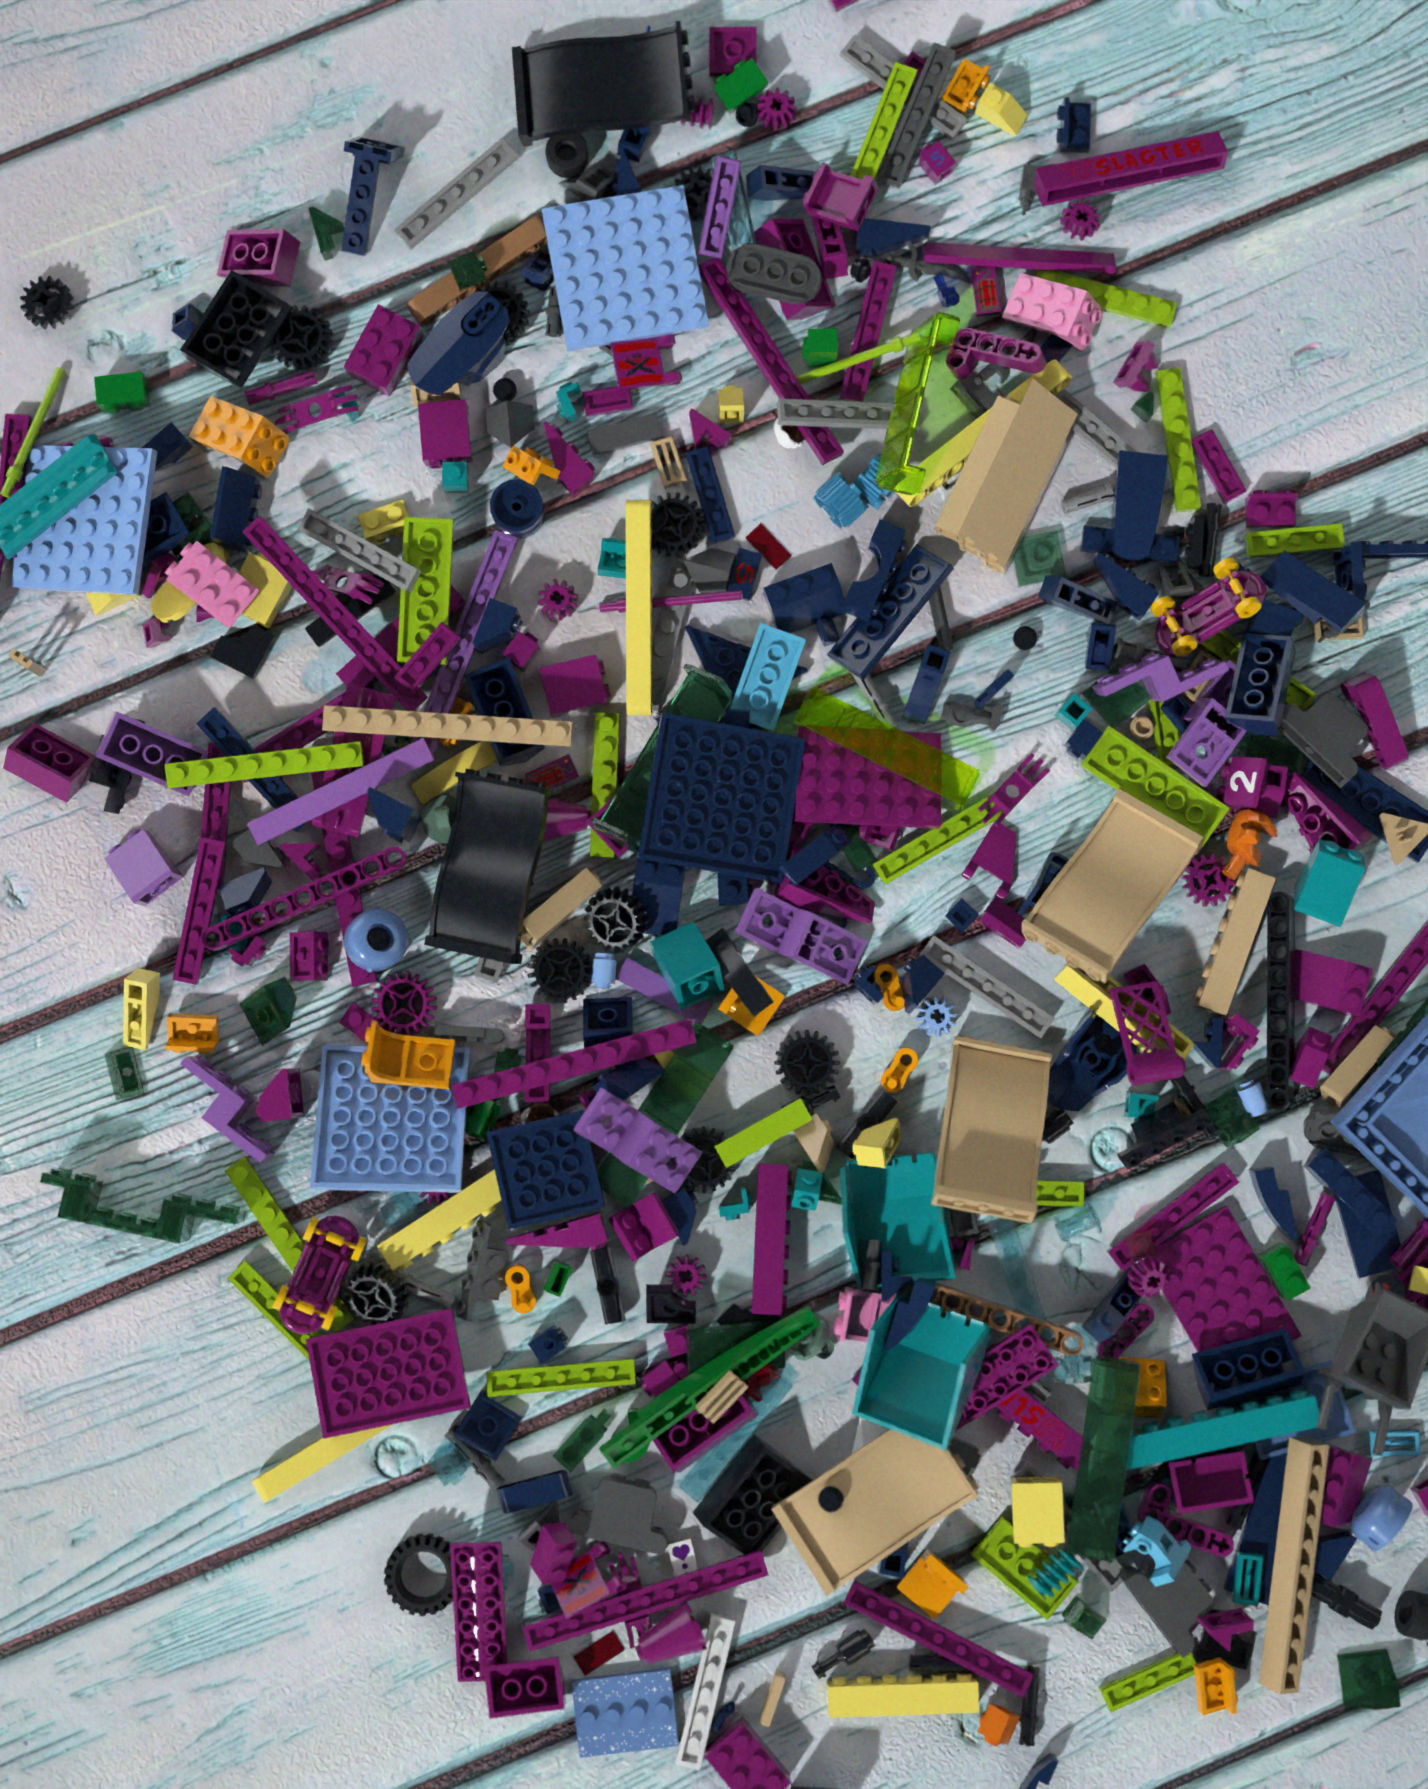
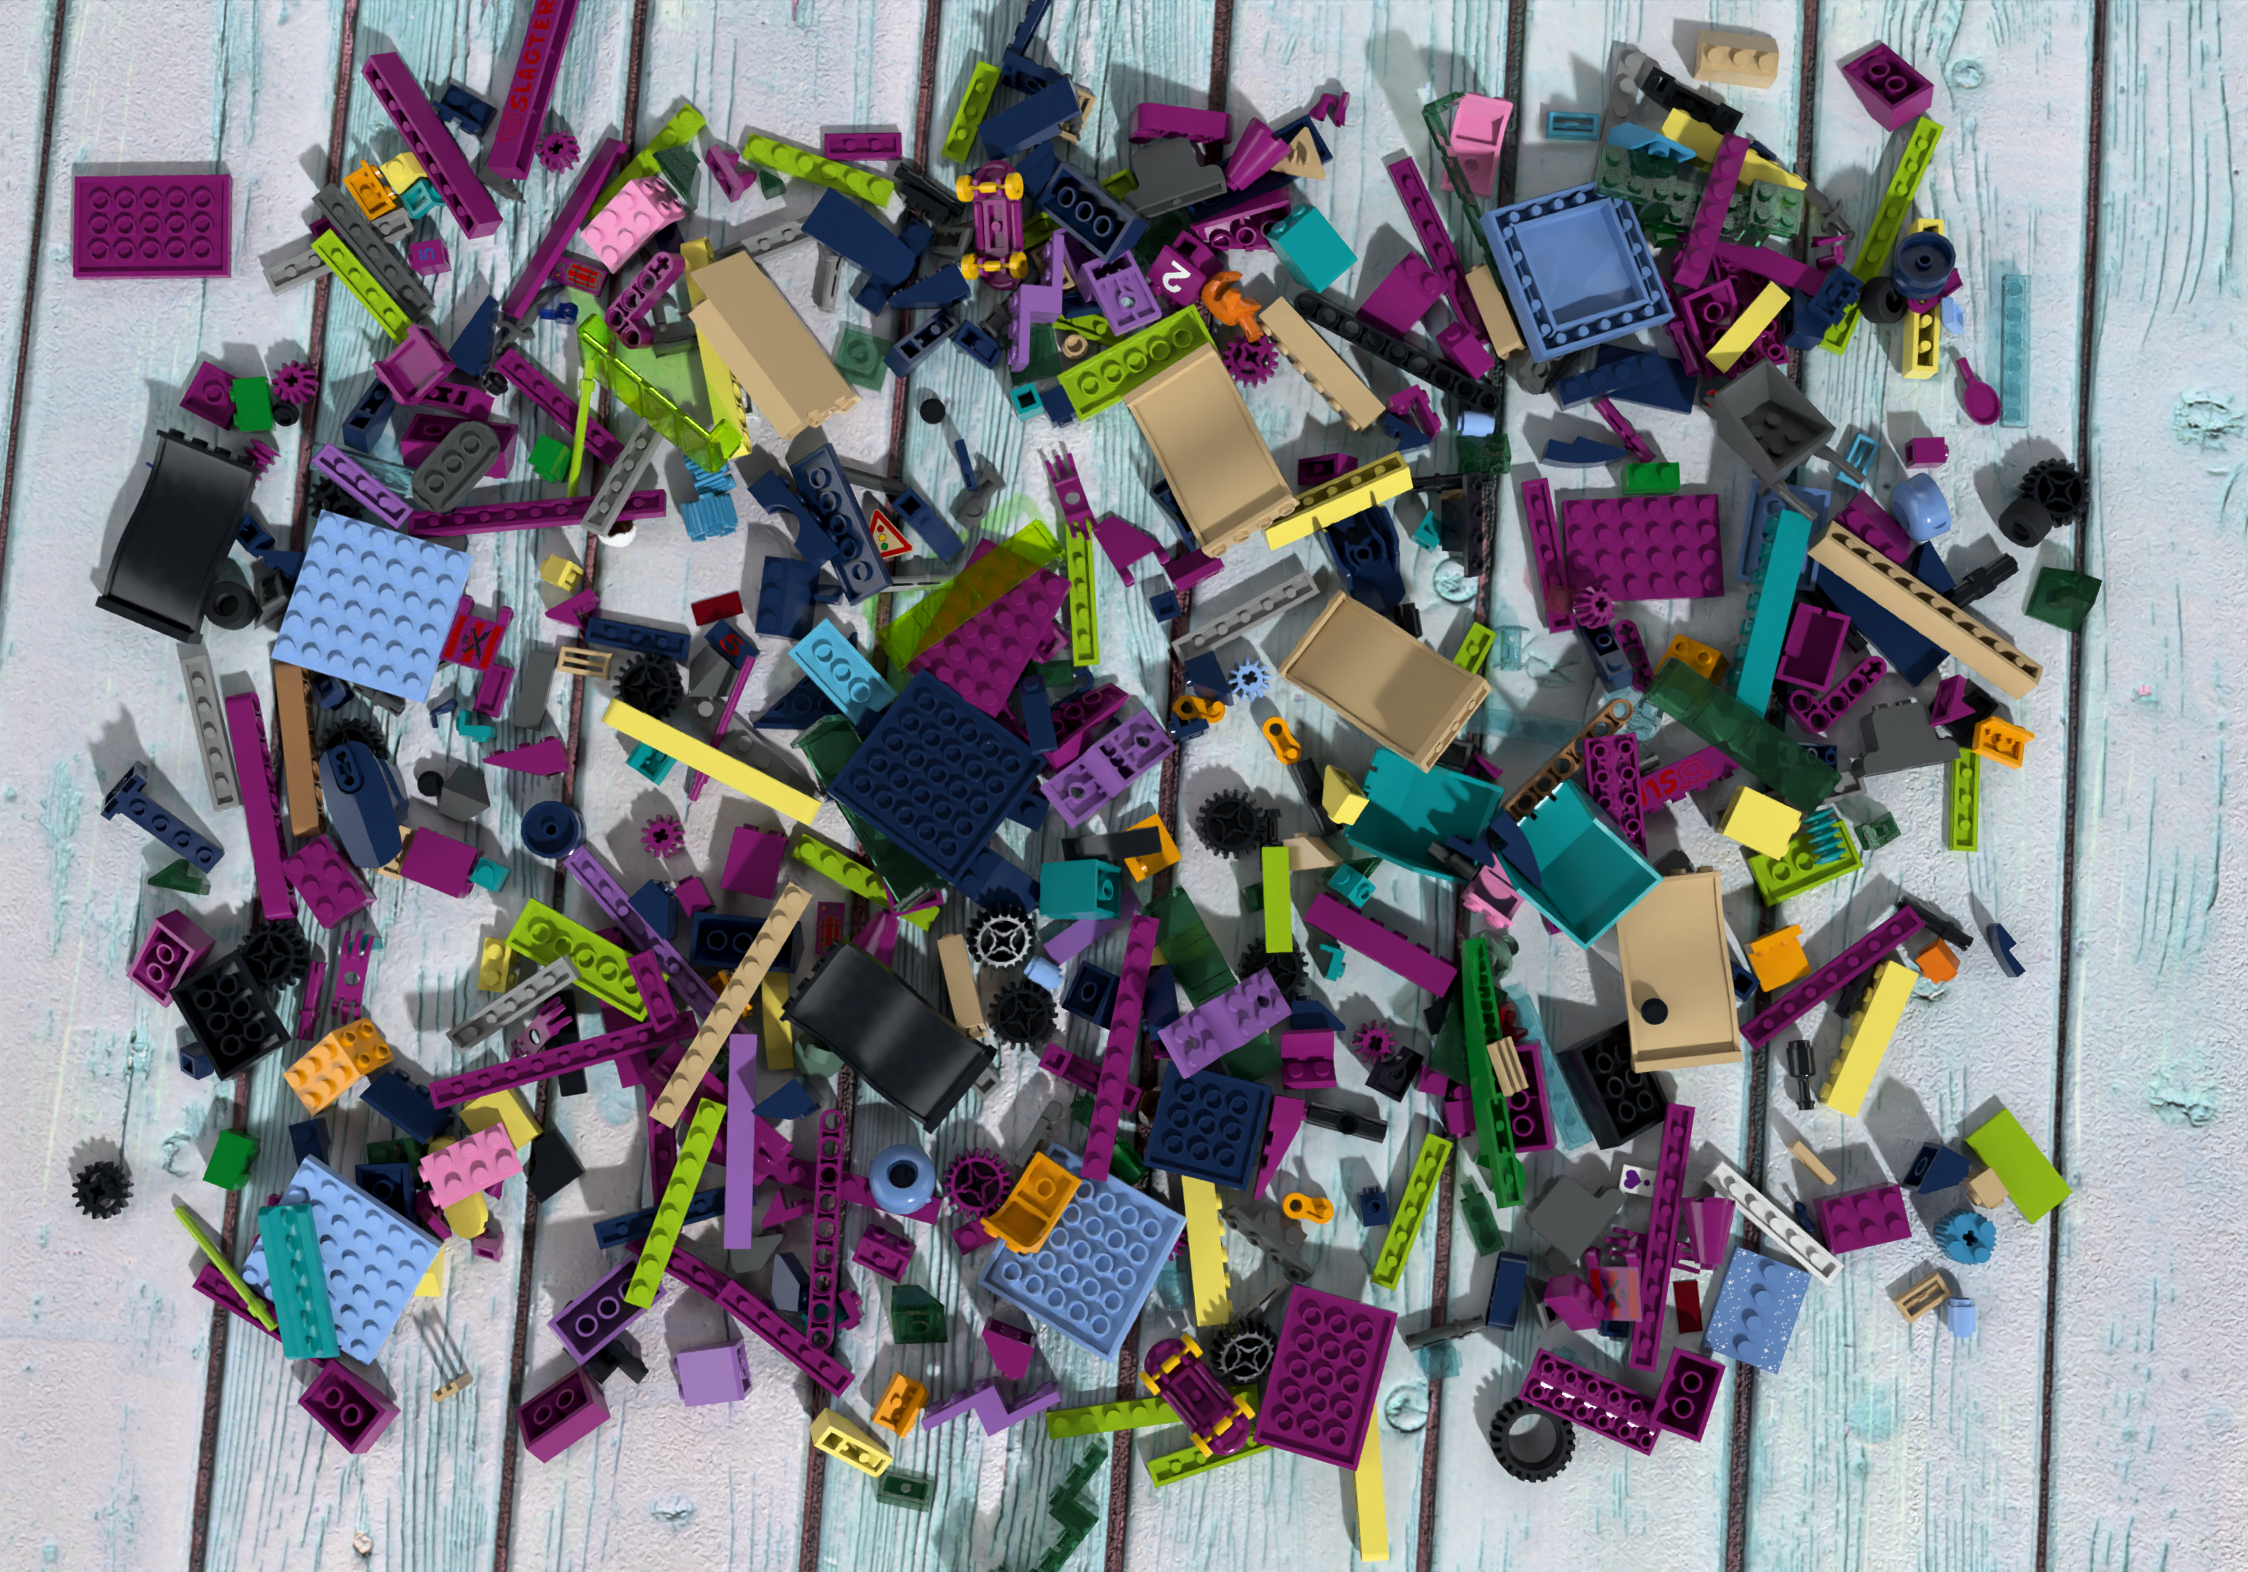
camera: 65 degrees left, 0 degrees up
(418, 264) = (261, 805): none -> magenta beam
(468, 270) = (293, 759): clear green brick -> none
(487, 1426) = (1422, 1305): dark blue tile -> none
(528, 465) = (516, 798): light orange bracket -> none
(552, 1275) = (1302, 1160): green piece -> none
(571, 368) = (442, 709): none -> dark blue piece
(756, 1112) = (1253, 897): none -> clear green slope
(899, 655) = (888, 537): none -> piece
(984, 131) = (421, 199): none -> teal bracket
(1030, 115) = (431, 145): none -> magenta brick
(1117, 328) = (681, 171): none -> clear green slope
(1153, 1065) = (1397, 505): magenta piece -> none
(1167, 1553) = (1839, 727): medium azure tile -> none
(1238, 1577) = (1897, 648): teal tile -> none
(1247, 1369) = (1724, 559): dark blue slope -> none
(1271, 509) = (930, 119): magenta bracket -> none
(1383, 794) = (1254, 155): none -> magenta cone

